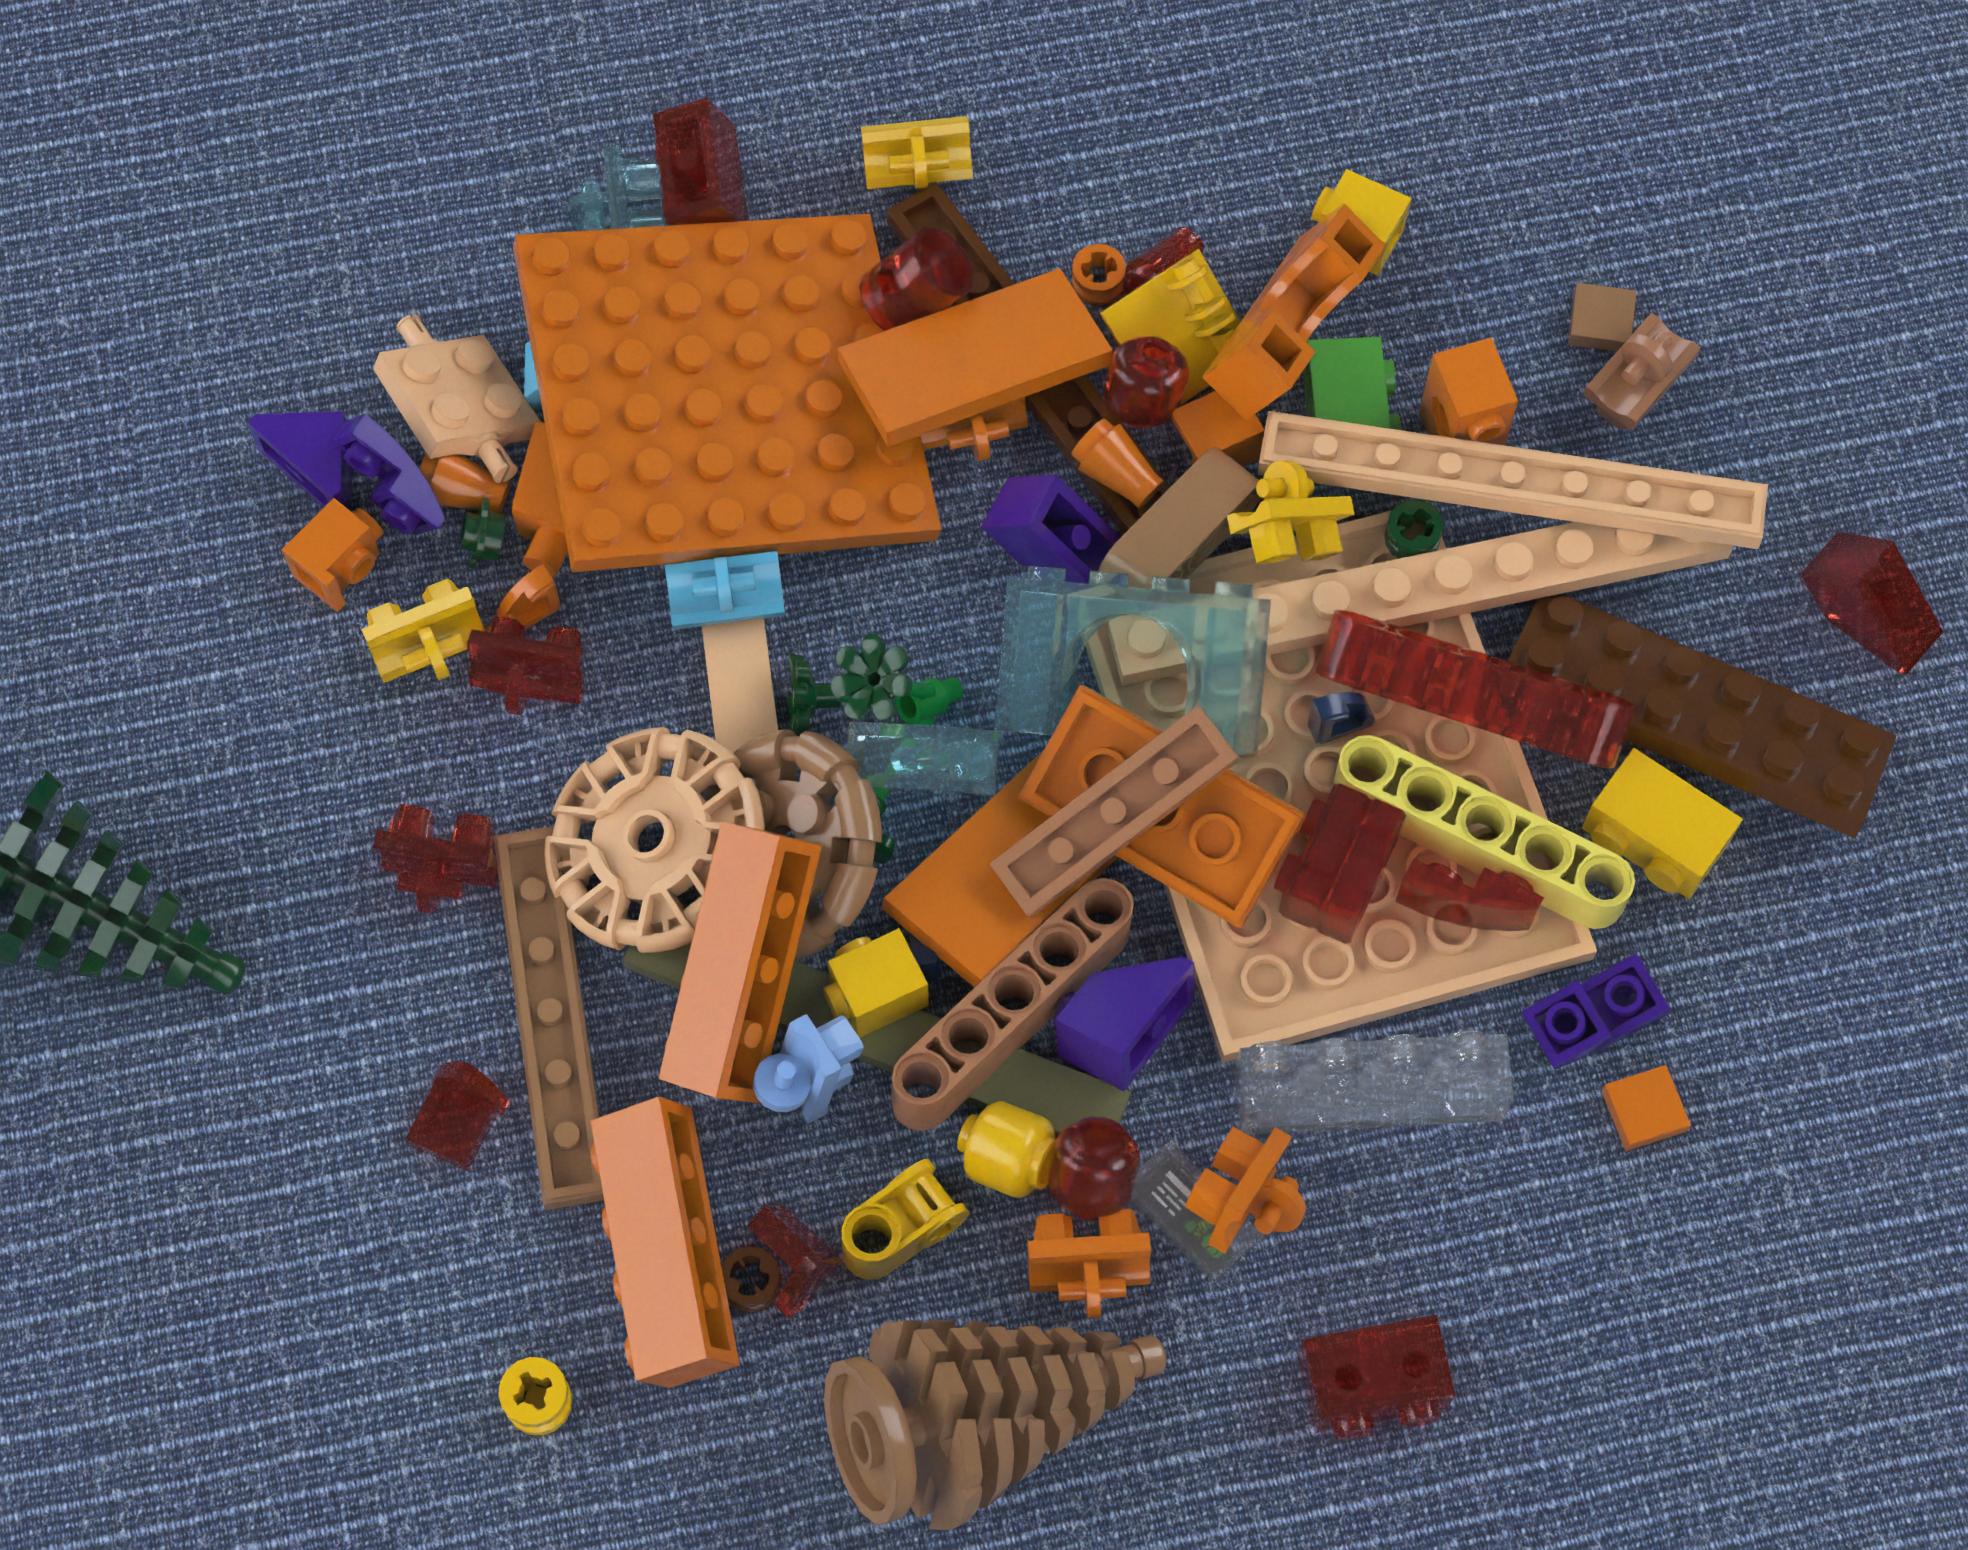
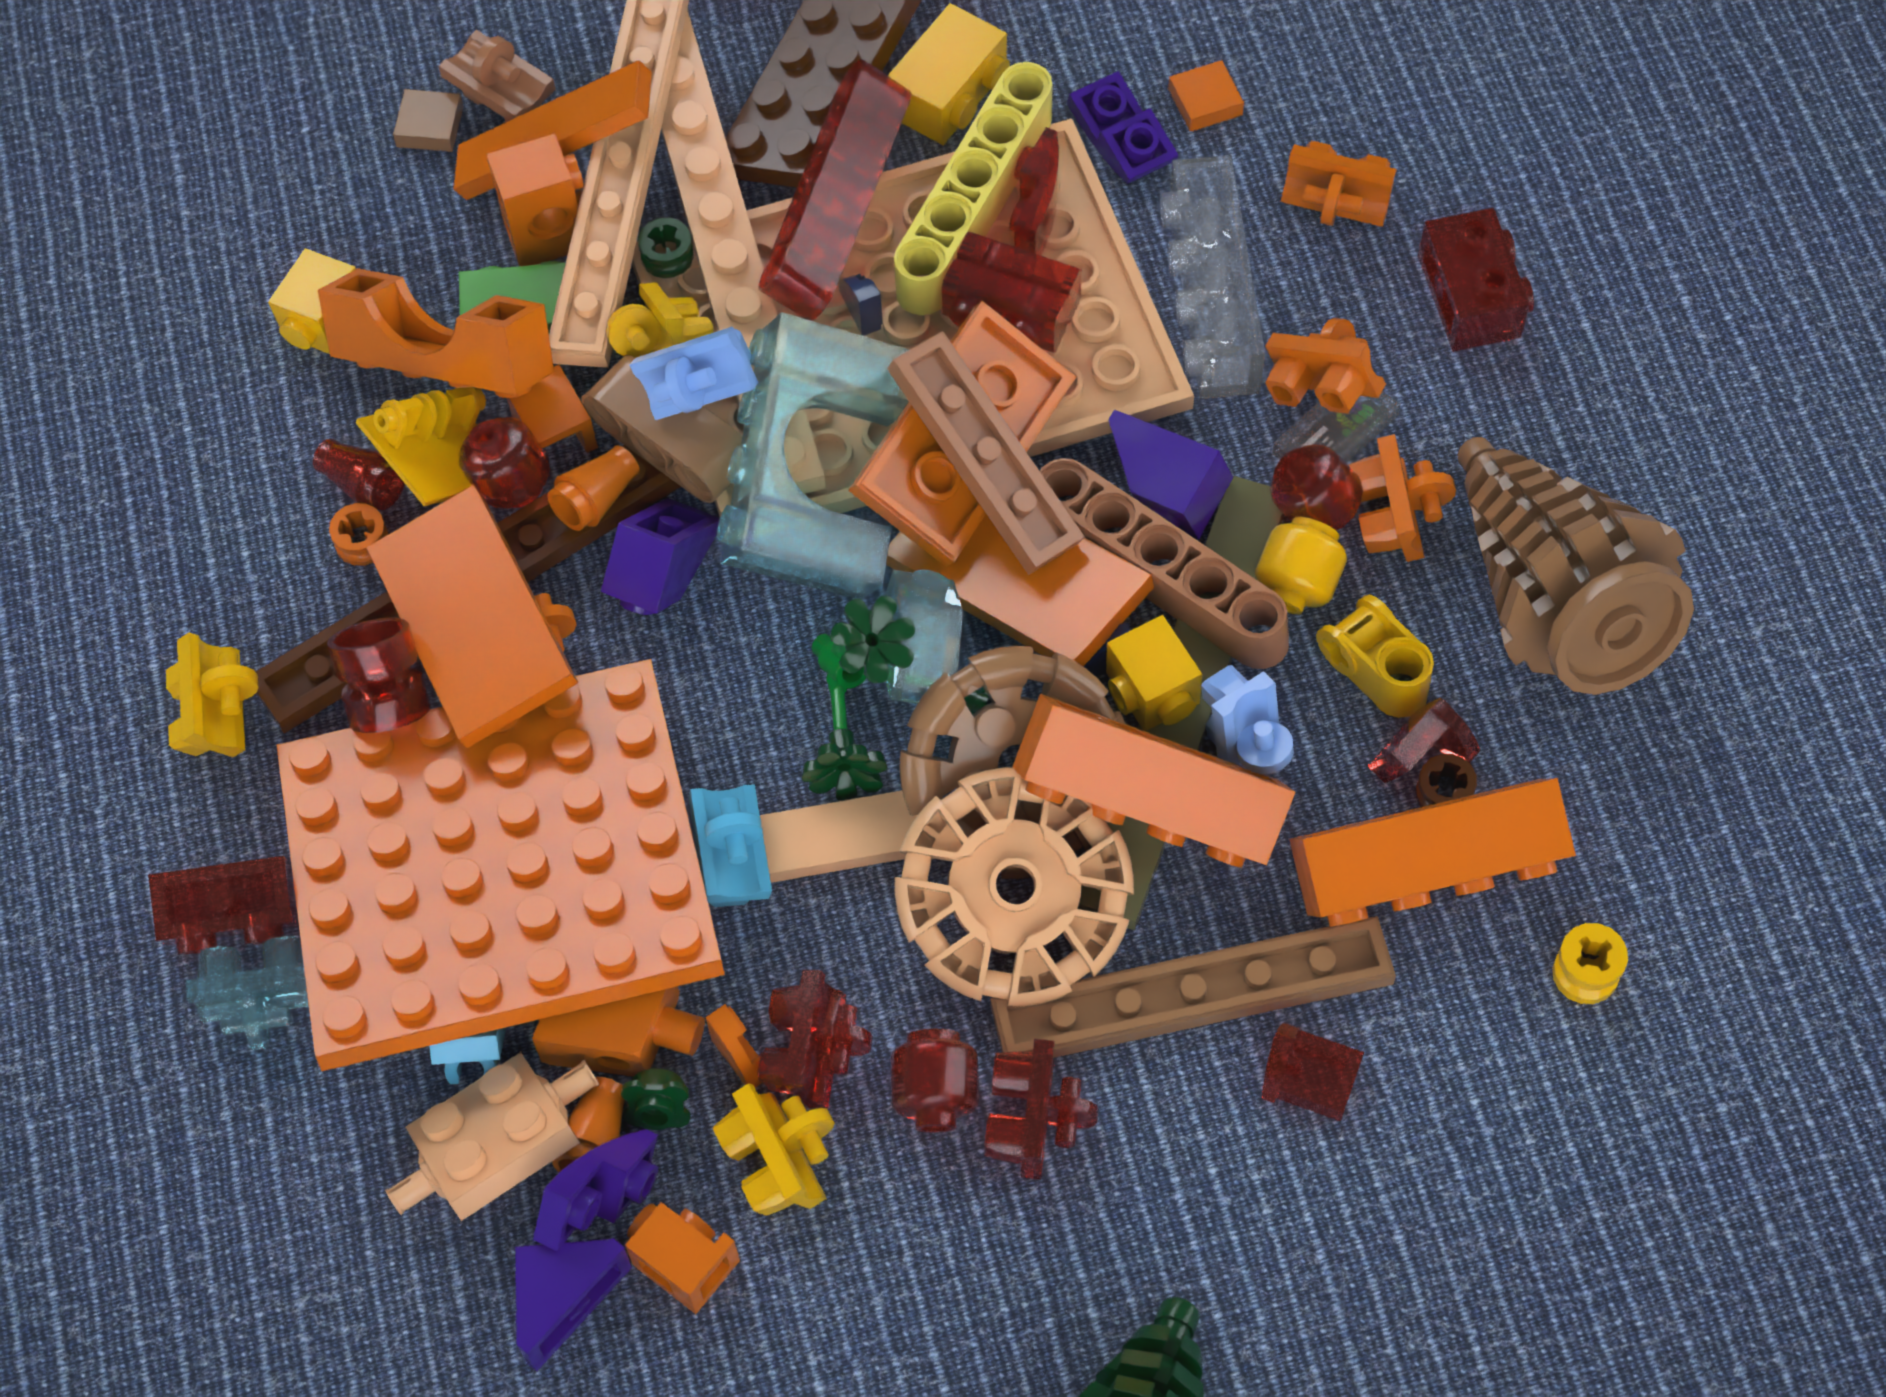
camera: 90 degrees left, 5 degrees down
(472, 767) = (934, 1079): none -> clear red head
(1201, 528) = (695, 372): none -> light blue hips
(1500, 1236) = (1338, 184): none -> orange hips
(1551, 416) = (575, 119): none -> orange tile

